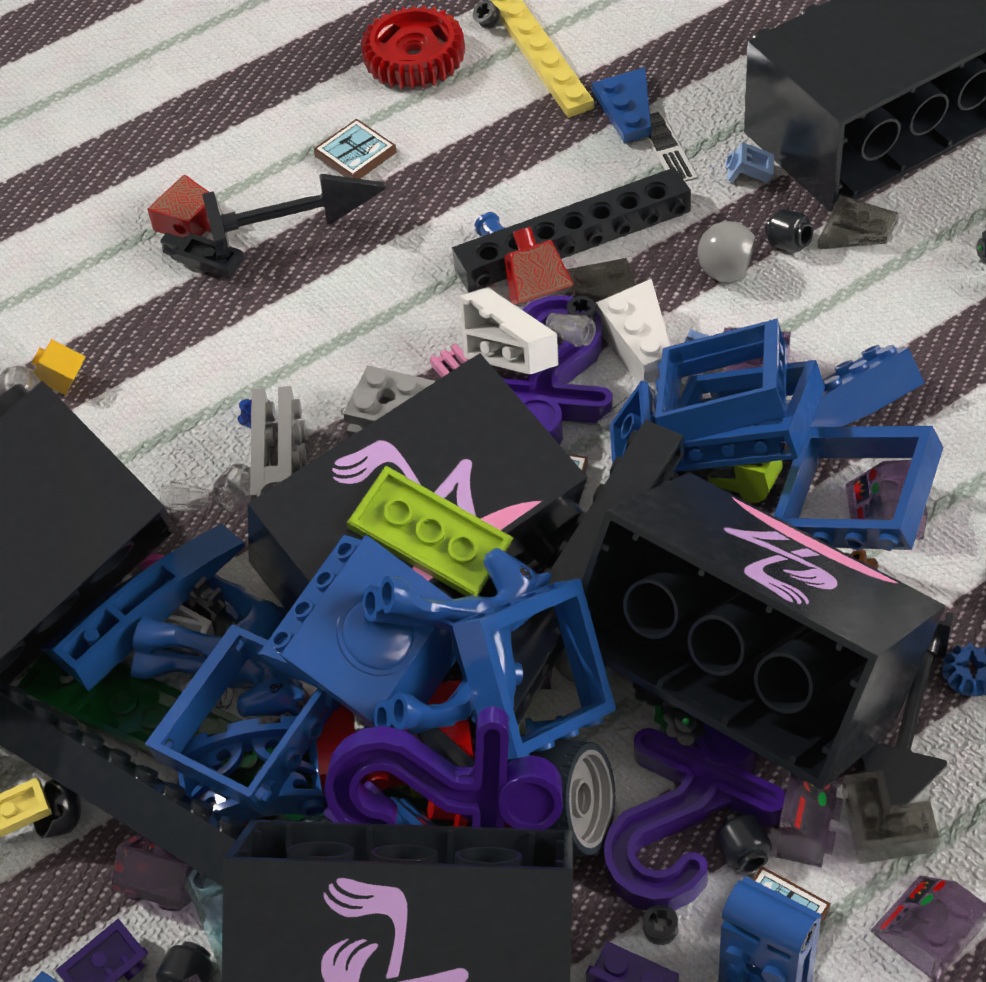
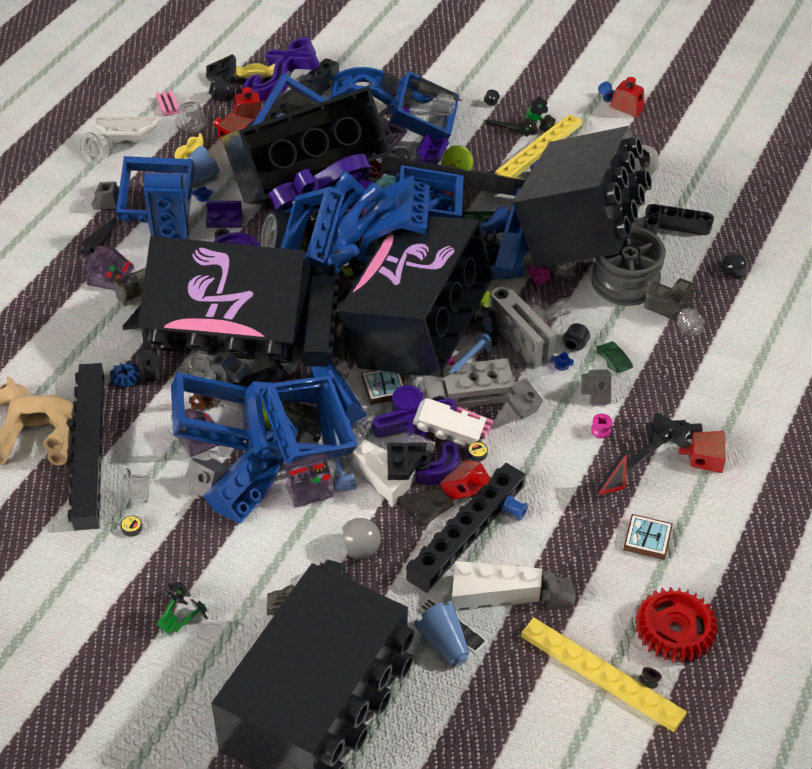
camera: 145 degrees right, 5 degrees down
(57, 366) = (681, 336): yellow brick -> none
(87, 888) = (458, 157): none -> lime tile
(175, 388) = (614, 356): none -> clear green slope
(200, 437) = (576, 337): none -> black head
(241, 343) = (597, 385): none -> flat silver brick
(288, 294) = (601, 426): none -> dark pink wheel
(369, 348) = (524, 399): none -> flat silver brick
(428, 531) = (393, 252): lime tile -> none
(520, 119) = (556, 591): none -> flat silver brick
(591, 148) = (494, 584): none -> white wedge
(613, 294) = (403, 459): none -> black wing
(626, 103) = (501, 643): blue wing -> none
(690, 122) = (443, 632): none -> medium blue cone
(900, 409) = (204, 474): none -> flat silver brick

